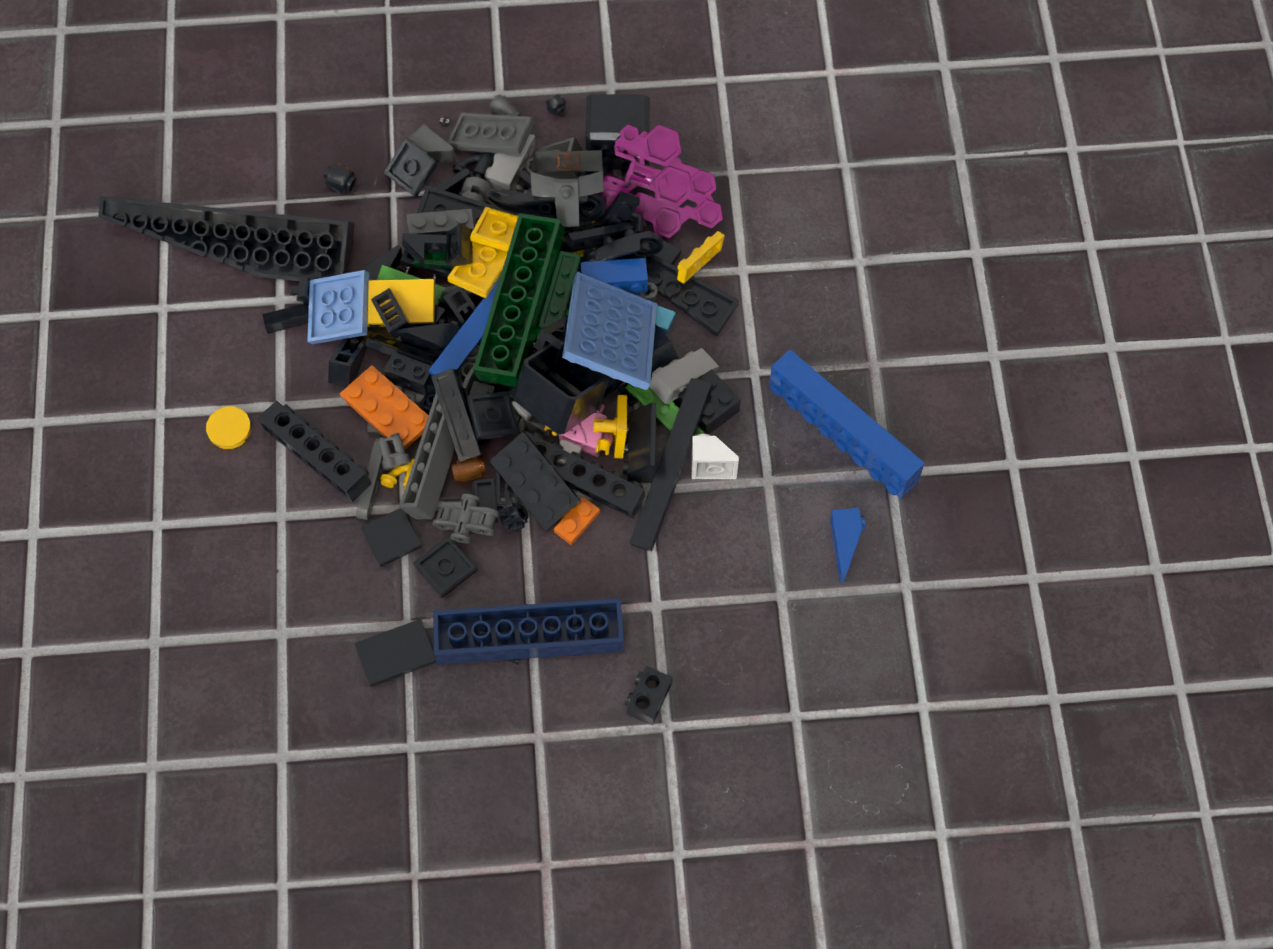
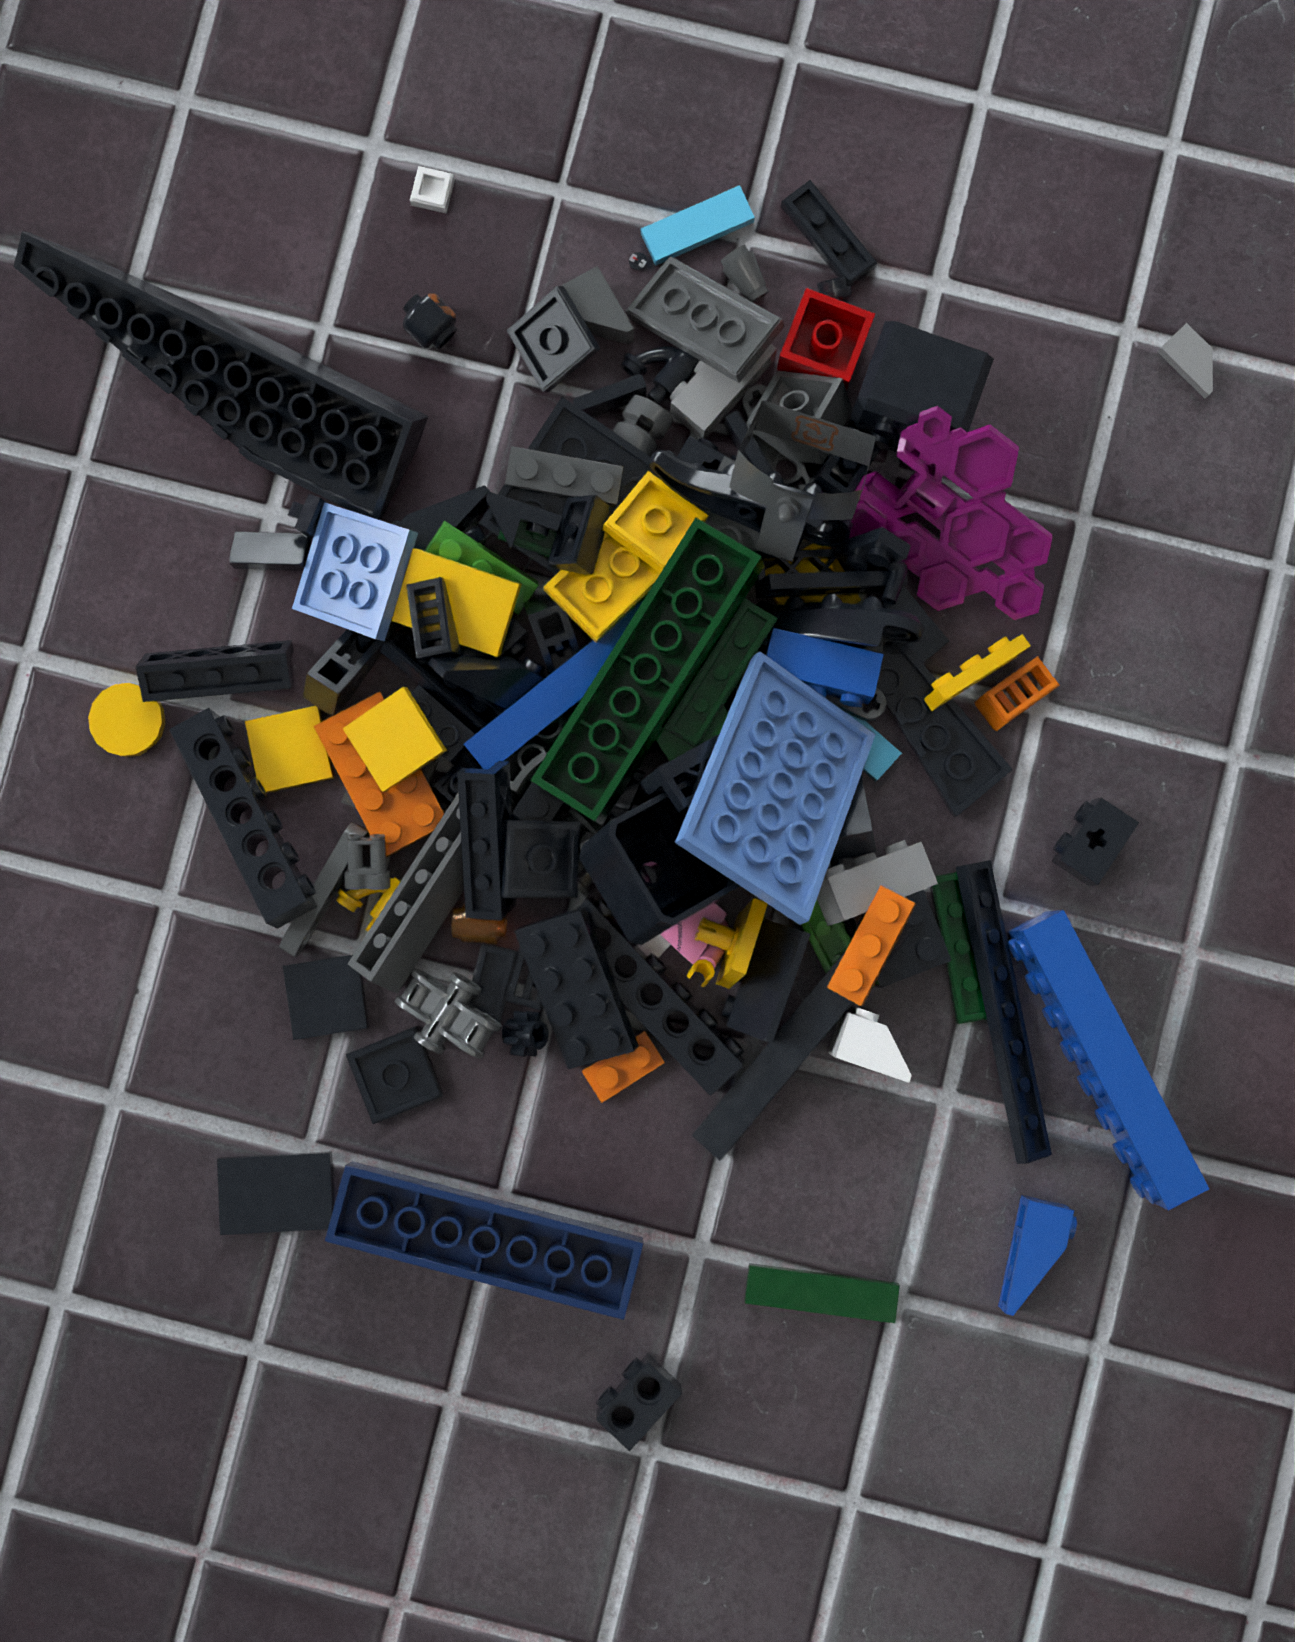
camera: 20 degrees right, 20 degrees up
(274, 384) = (215, 671): none -> black fence
(320, 118) = (432, 189): none -> white tile
(329, 413) = (288, 749): none -> yellow tile
(389, 381) = (394, 739): none -> yellow tile
(471, 95) = (697, 225): none -> medium azure tile
(543, 79) = (828, 233): none -> black tile
(559, 122) = (825, 337): none -> red brick
(692, 399) = (871, 945): none -> orange plate
(722, 277) = (998, 708): none -> orange slope
(735, 605) = (821, 1293): none -> dark green tile
(750, 405) = (962, 969): none -> dark green tile
(758, 81) = (1191, 359): none -> light grey tile
(782, 424) = (1003, 1012): none -> black tile
(793, 333) = (1112, 832): none -> black brick

